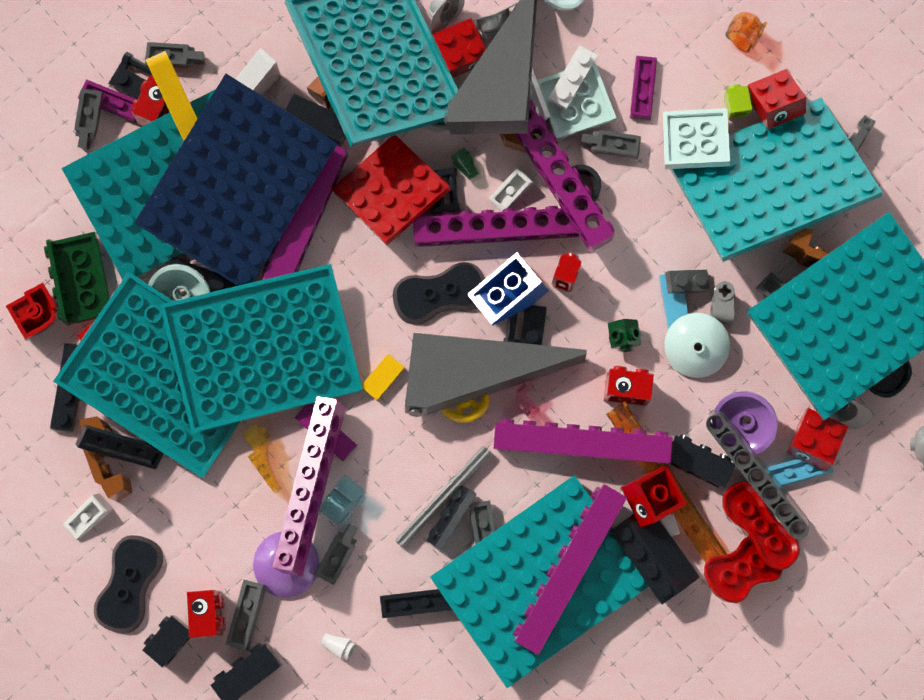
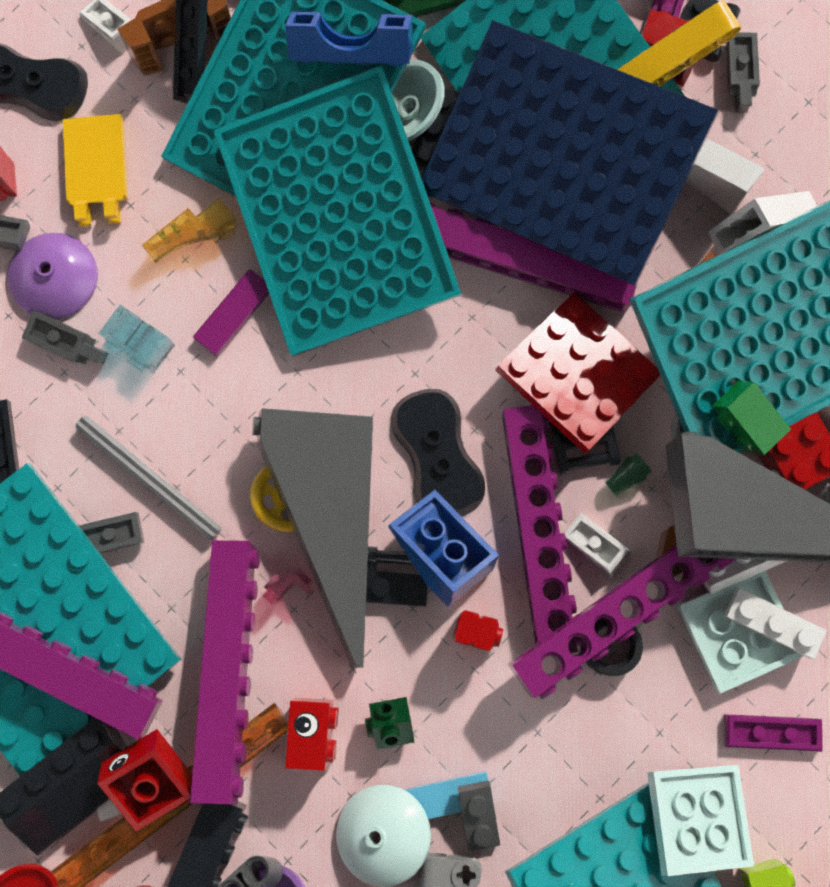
camera: 85 degrees right, 0 degrees up
(137, 348) = (314, 40): none -> blue arch
(203, 529) = (95, 166): none -> yellow tile
(296, 53) = (759, 217): none -> white slope
(309, 487) = (144, 289): brick -> none
(317, 117) = (673, 253): black brick -> none
(382, 377) = (312, 382): yellow tile -> none
(436, 77) = (750, 418): none -> green brick
(451, 517) = (117, 488): black plate -> none
(612, 143) = (681, 691): dark grey hinge -> none

